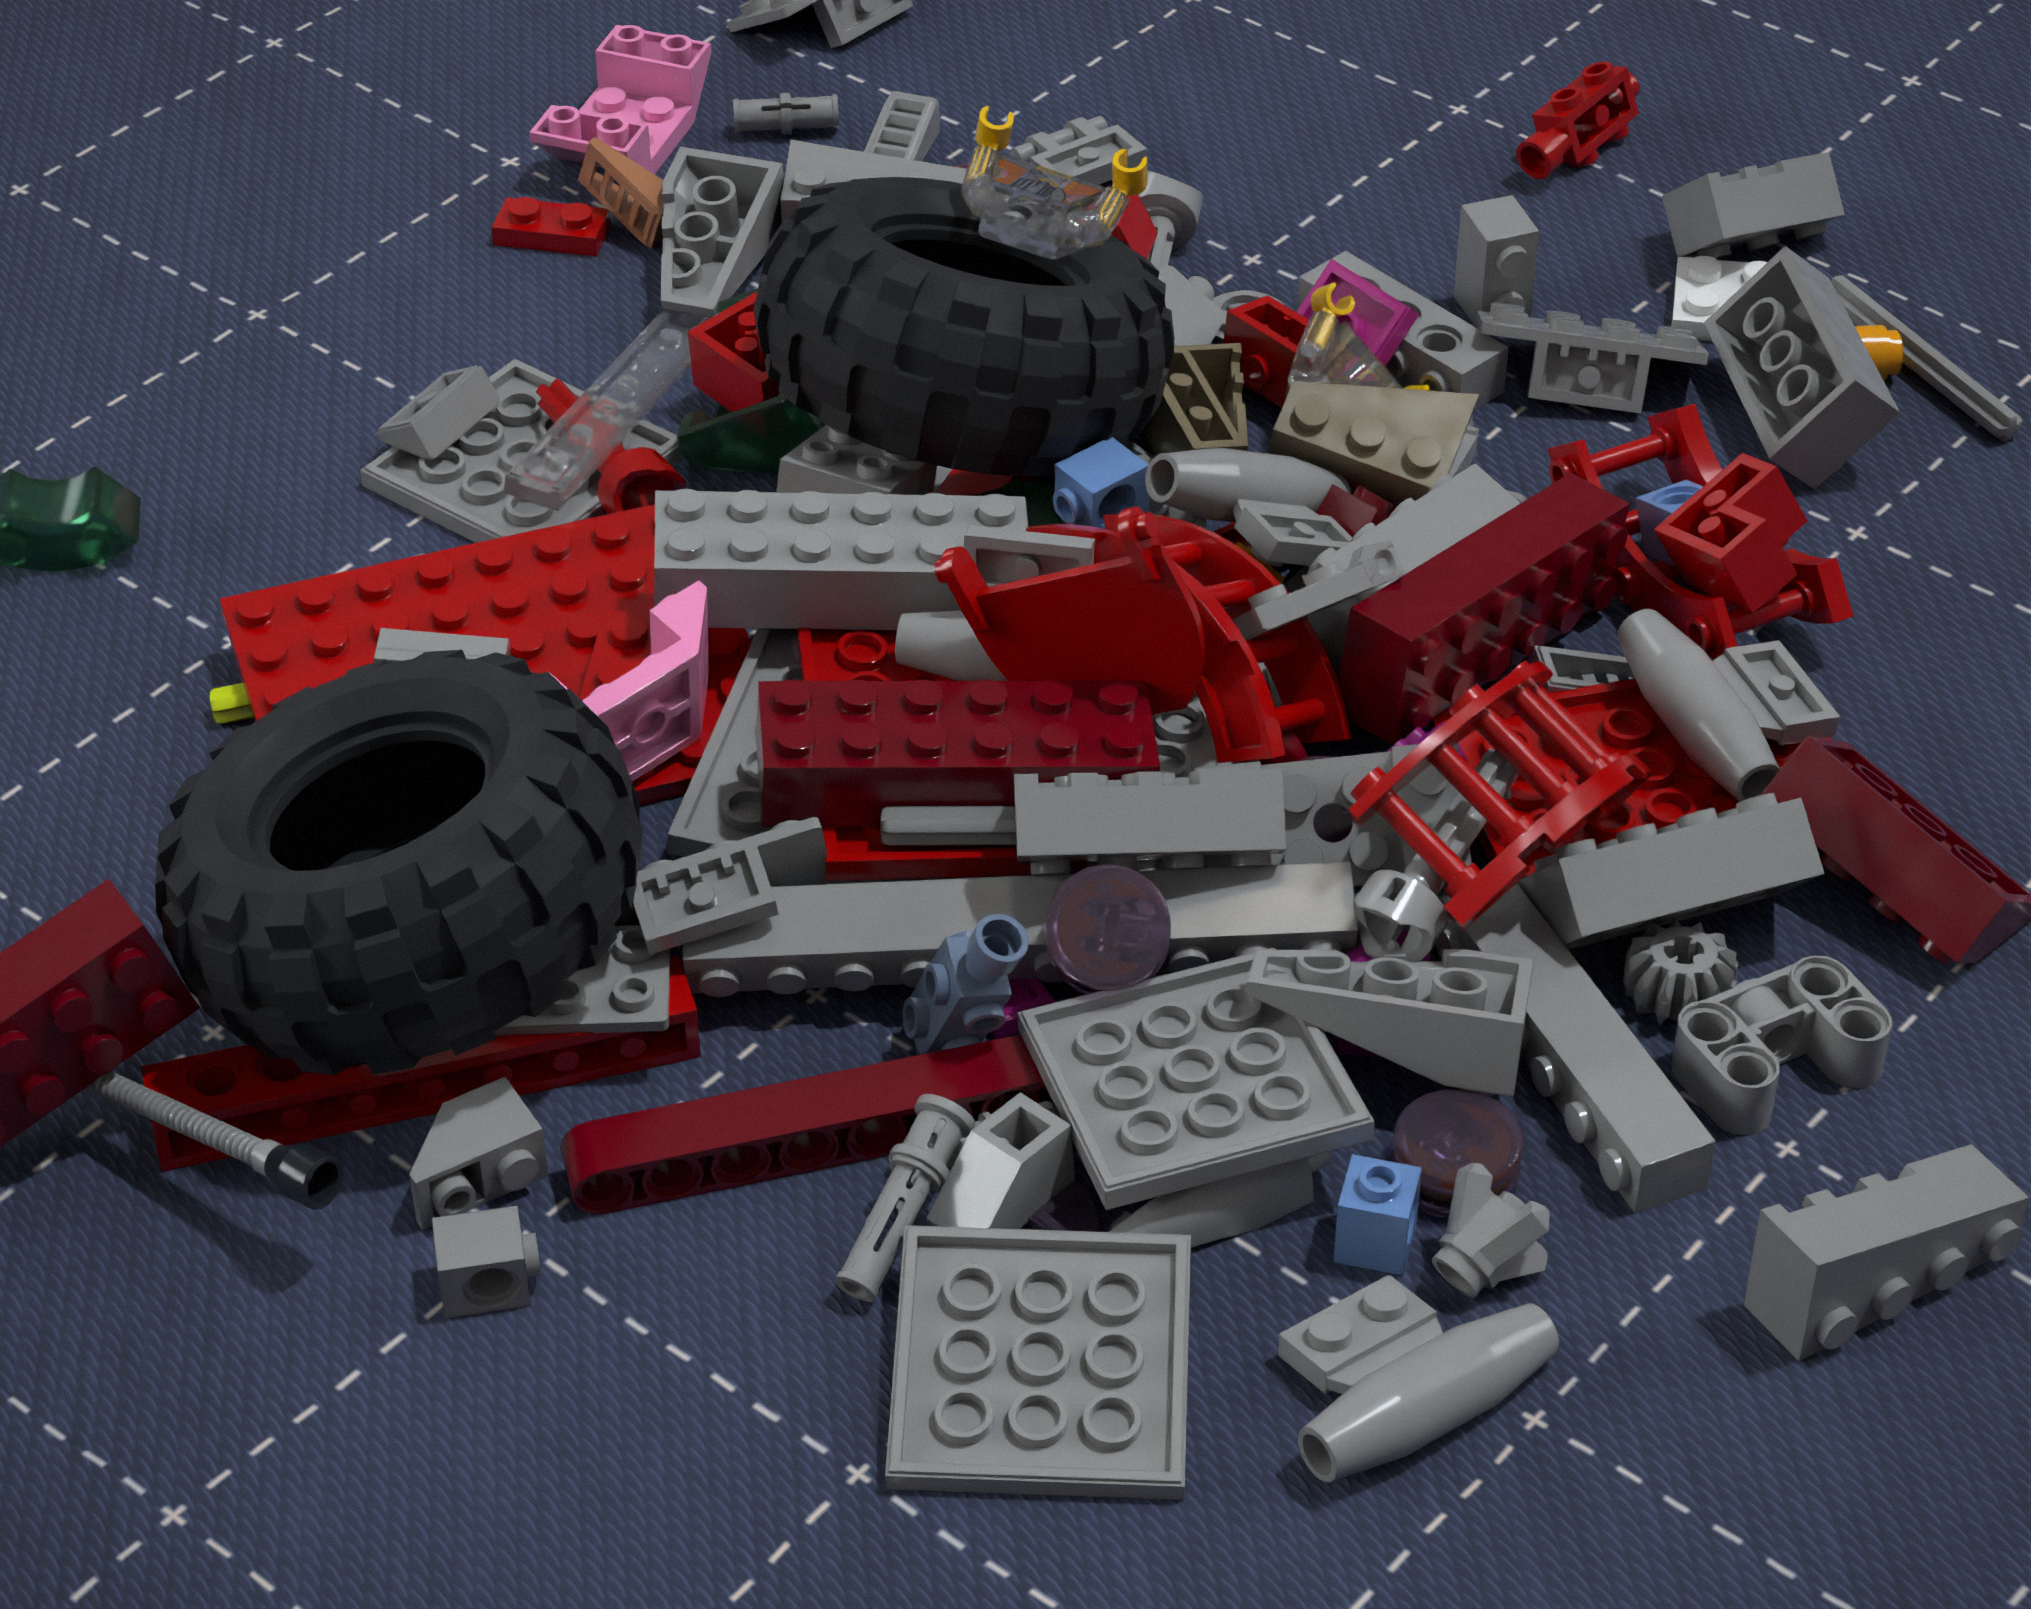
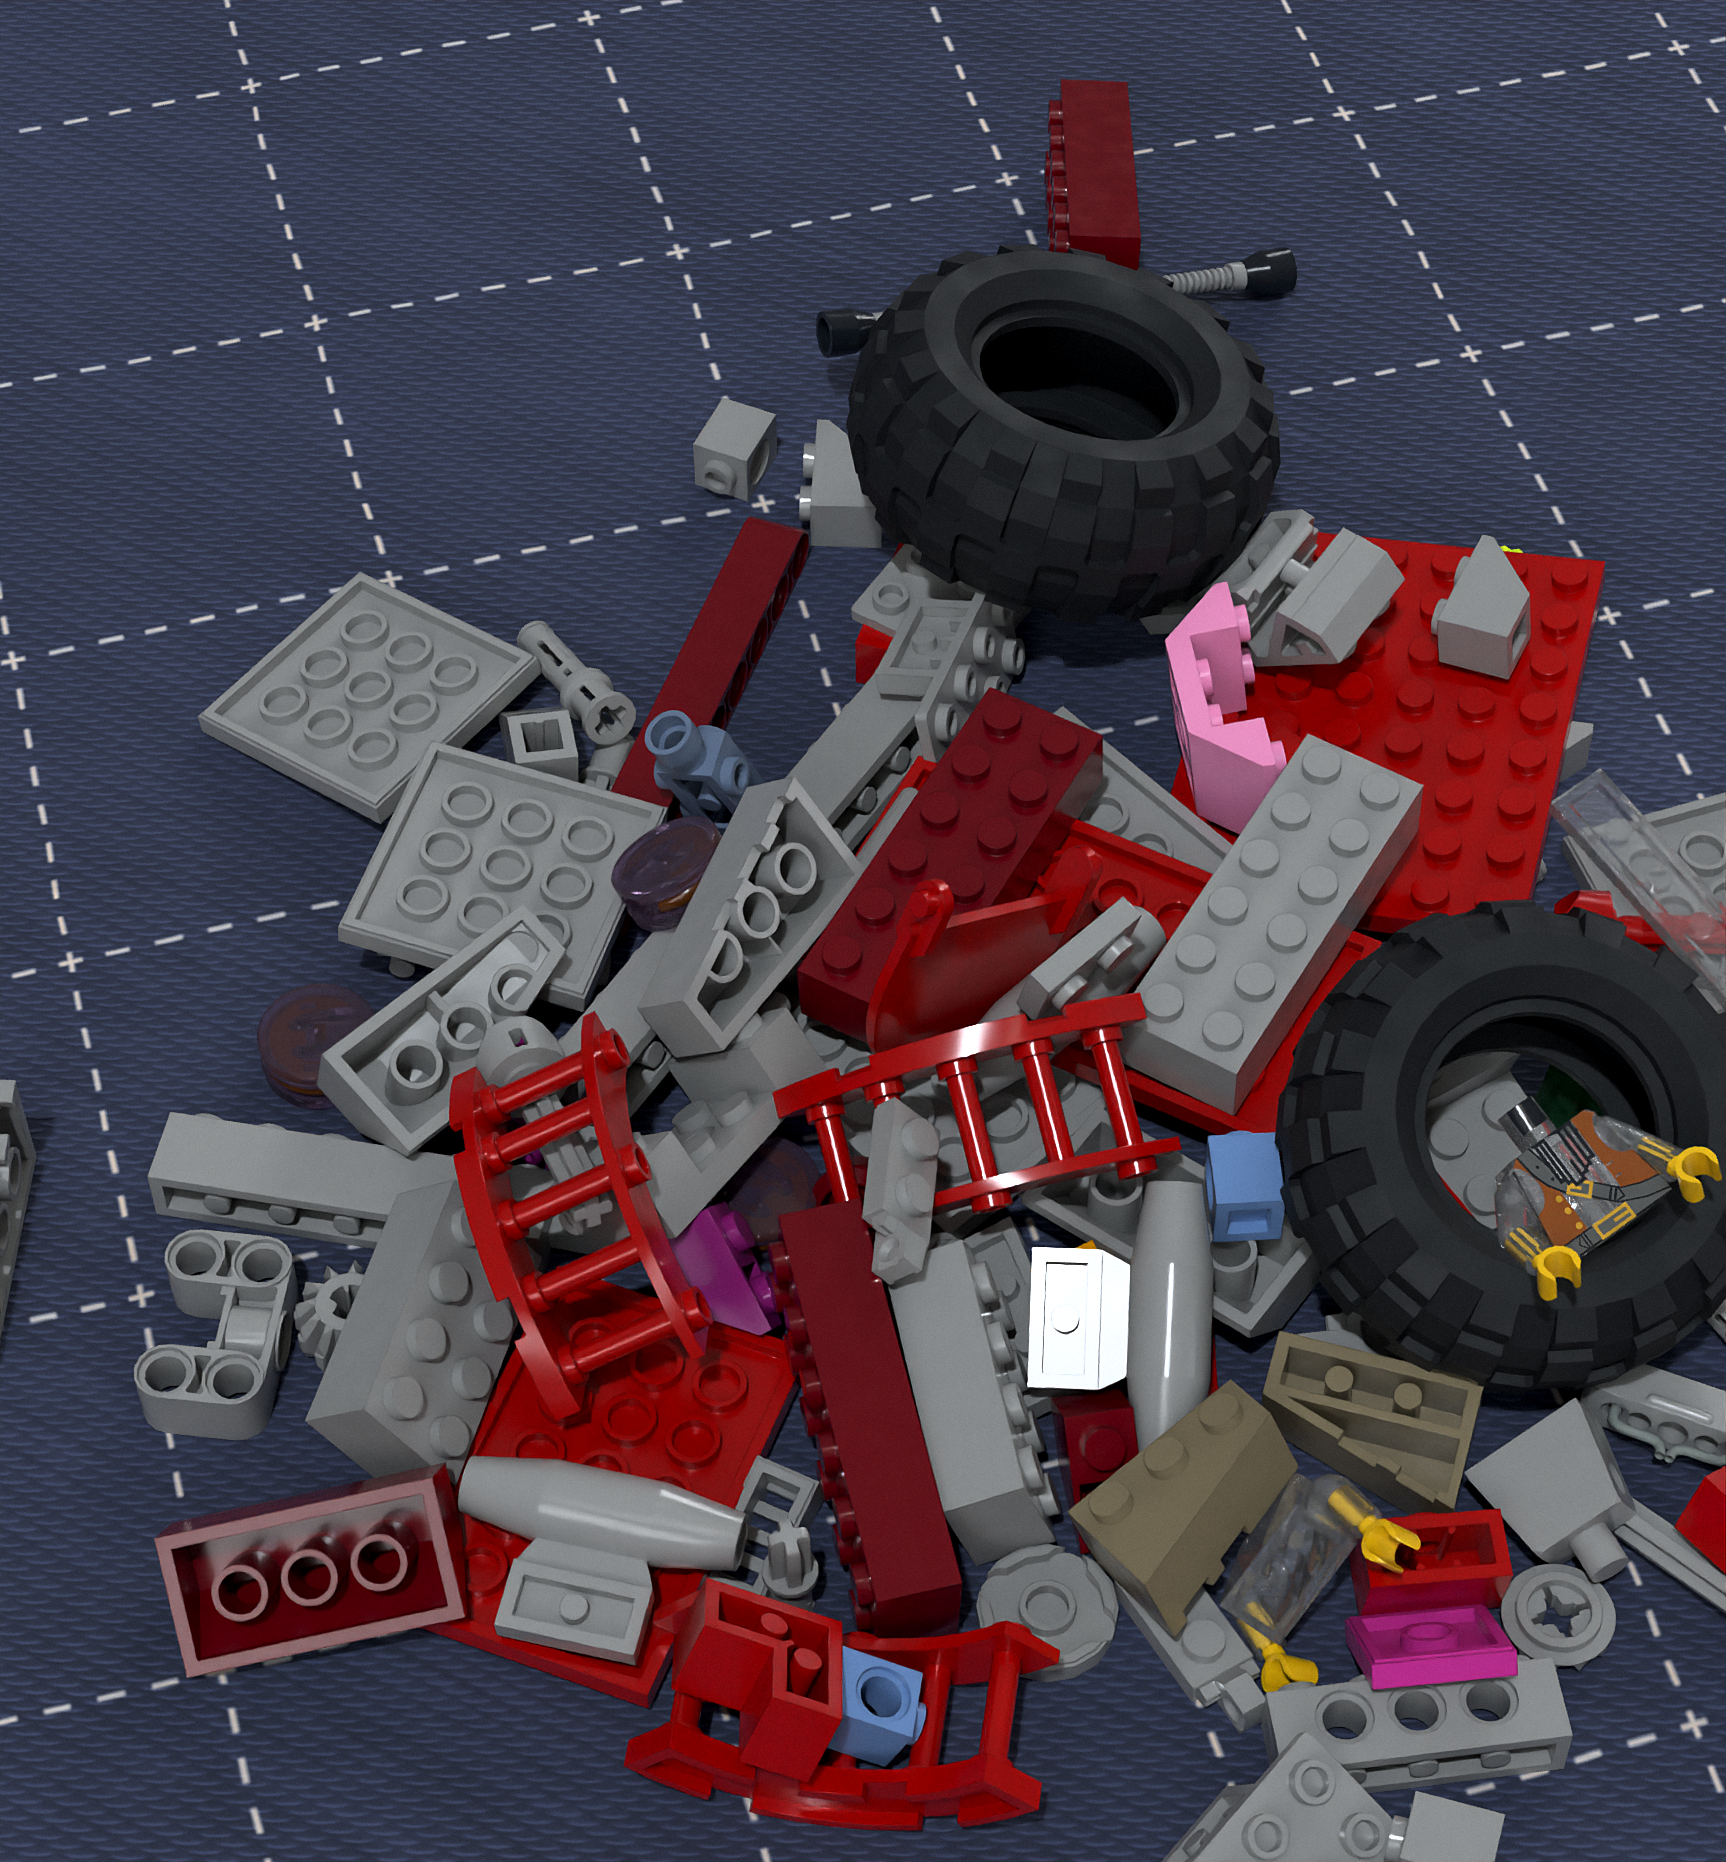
camera: 125 degrees right, 10 degrees up
(351, 607) = (1486, 615): none -> light grey slope
(1377, 1214) = (301, 944): medium blue brick -> none
(1404, 1375) = (148, 884): light grey plate -> none
(1489, 1235) = (215, 1000): light grey rock -> none
(1624, 598) = (790, 1566): none -> light grey axle

